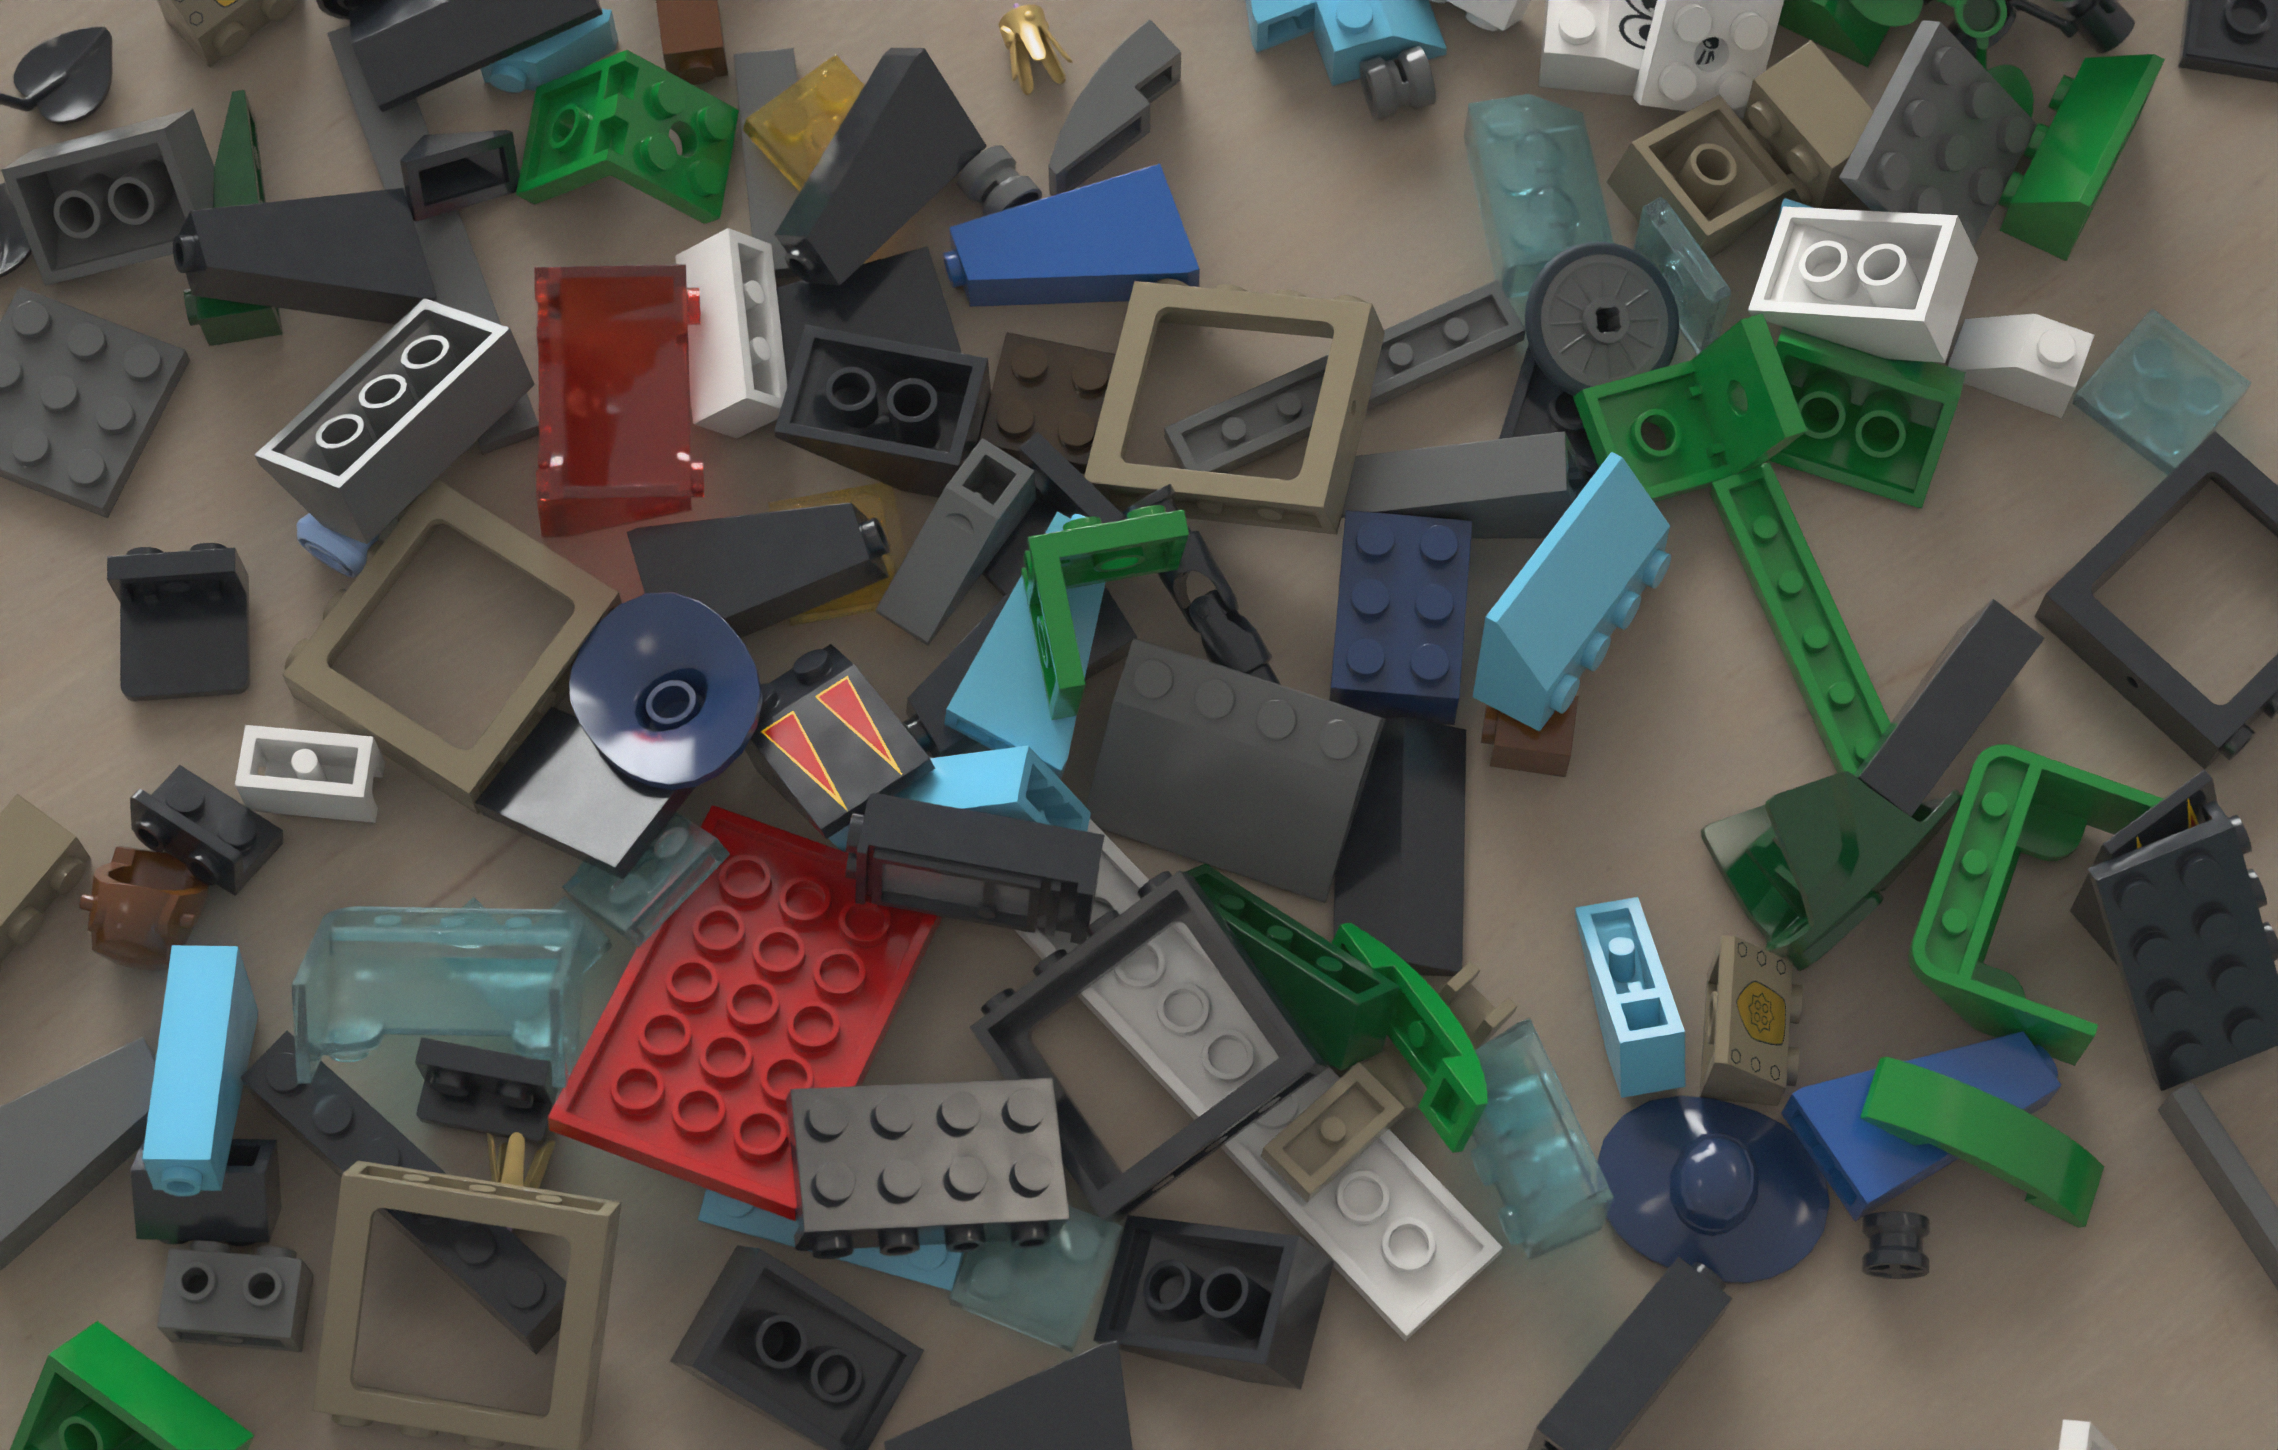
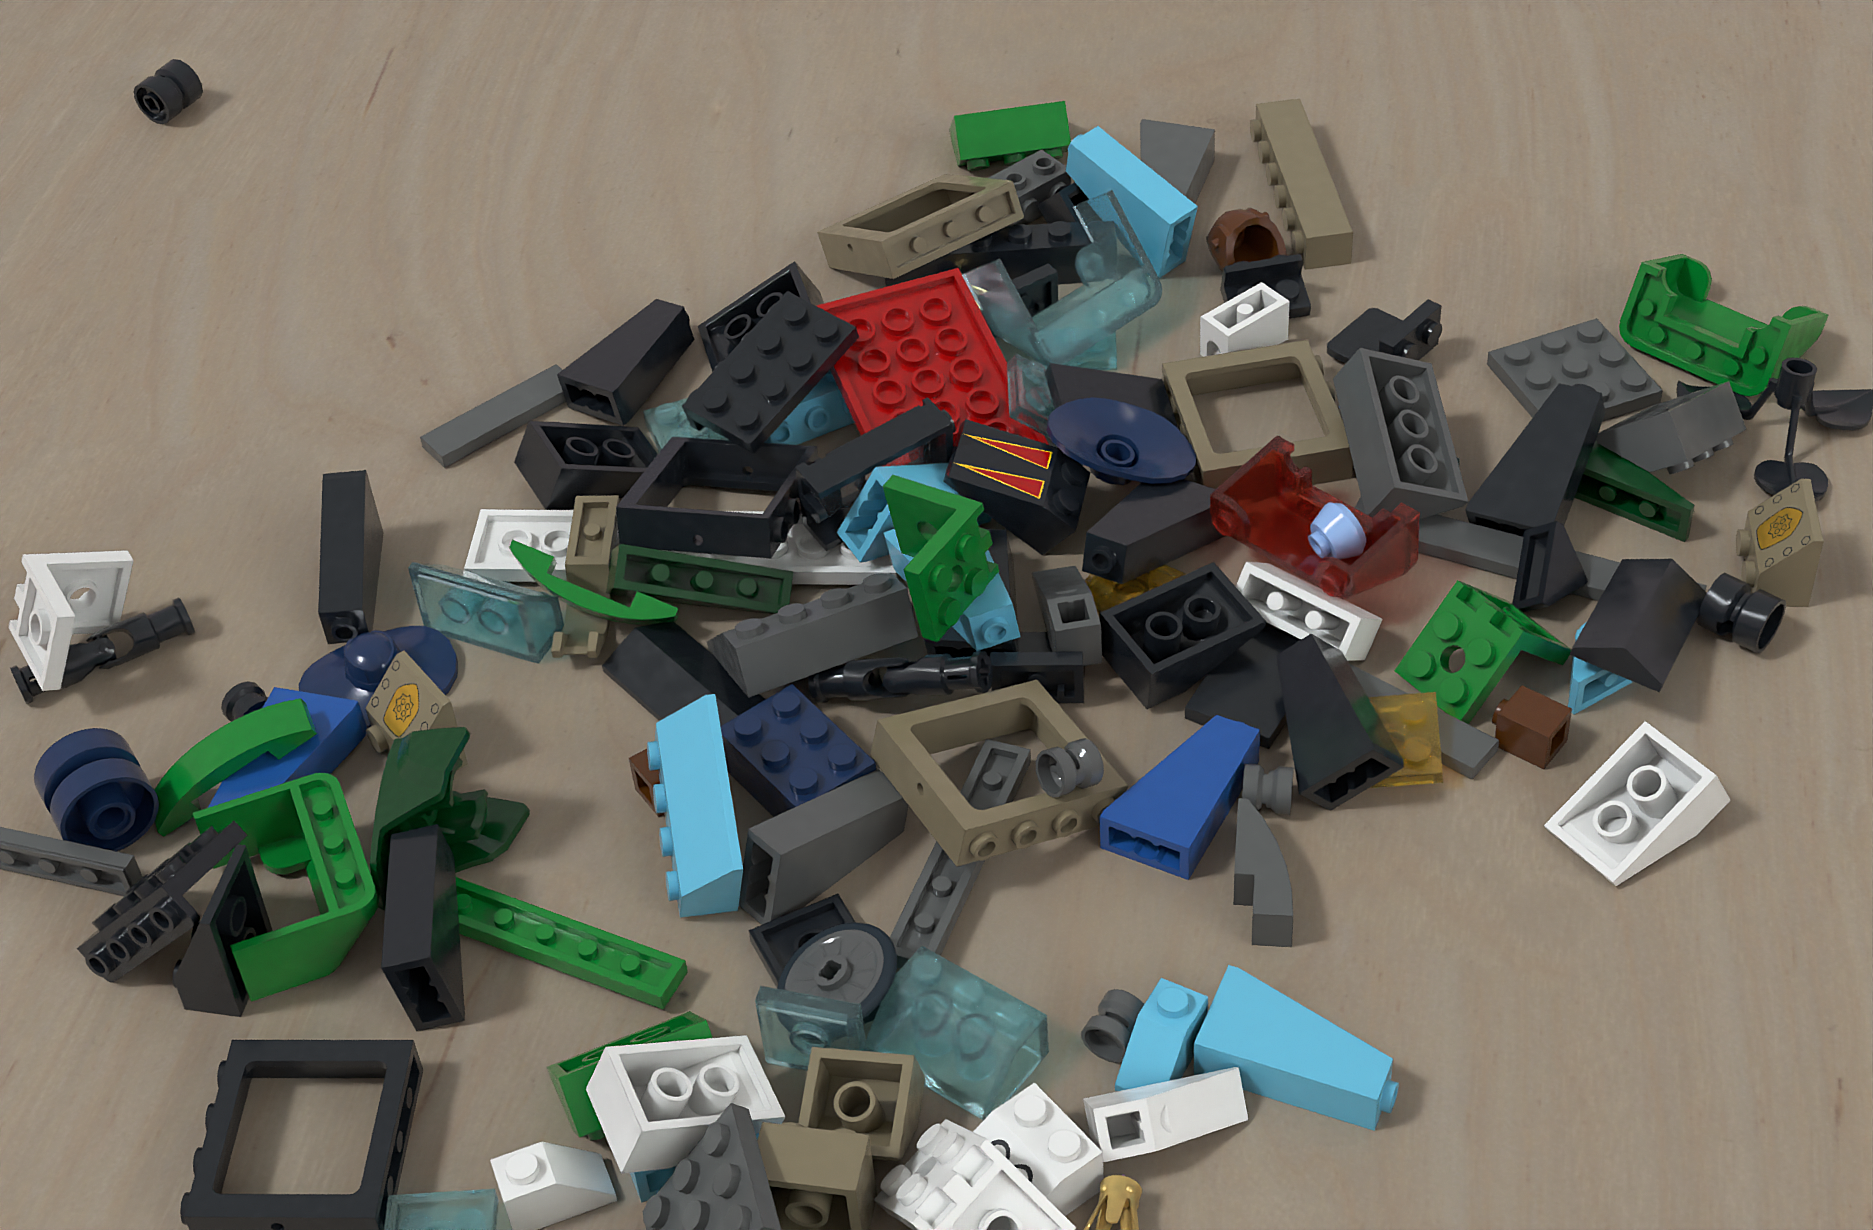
camera: 140 degrees right, 25 degrees down
(602, 374) = (1336, 533): none -> light blue cone
(1027, 32) = (1357, 875): pearl gold piece -> none
(1050, 392) = (1121, 725): dark brown plate -> none
(1197, 298) = (1073, 766): none -> dark grey wheel
(1632, 998) = (496, 704): medium azure slope -> none
(1716, 411) = (708, 971): green bracket -> none
(2158, 1226) = (96, 790): none -> dark blue wheel

